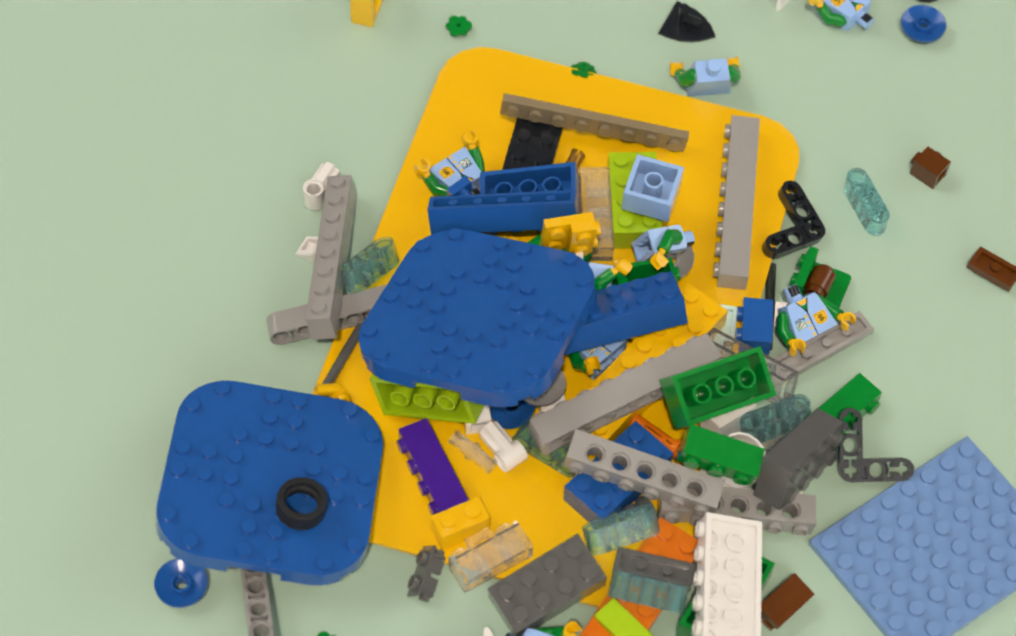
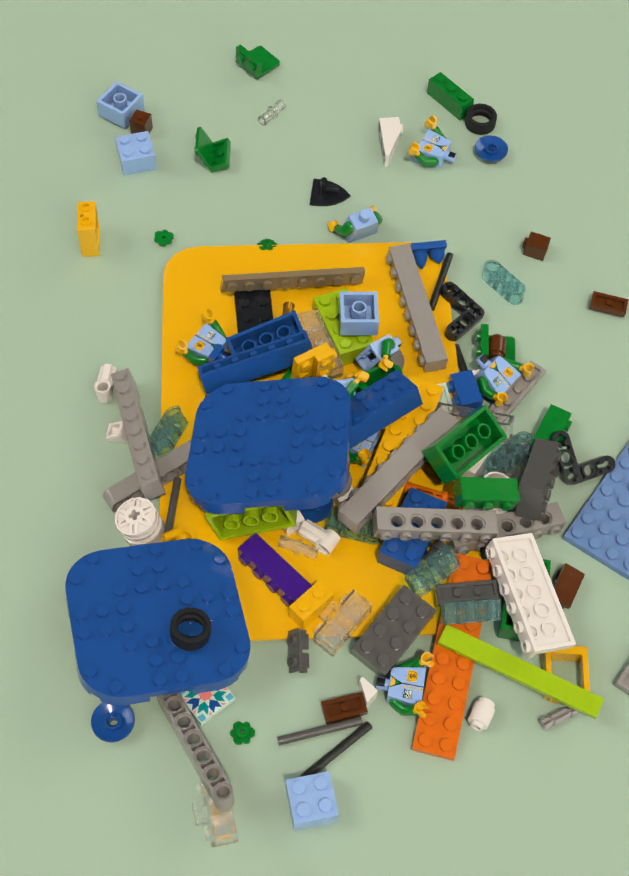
camera: 20 degrees left, 0 degrees up
(295, 362) = (139, 522): none -> white wheel
(297, 599) = (207, 704): none -> tile
(772, 131) = (421, 250): none -> blue tile
(785, 176) = (437, 290): none -> pearl dark grey bar

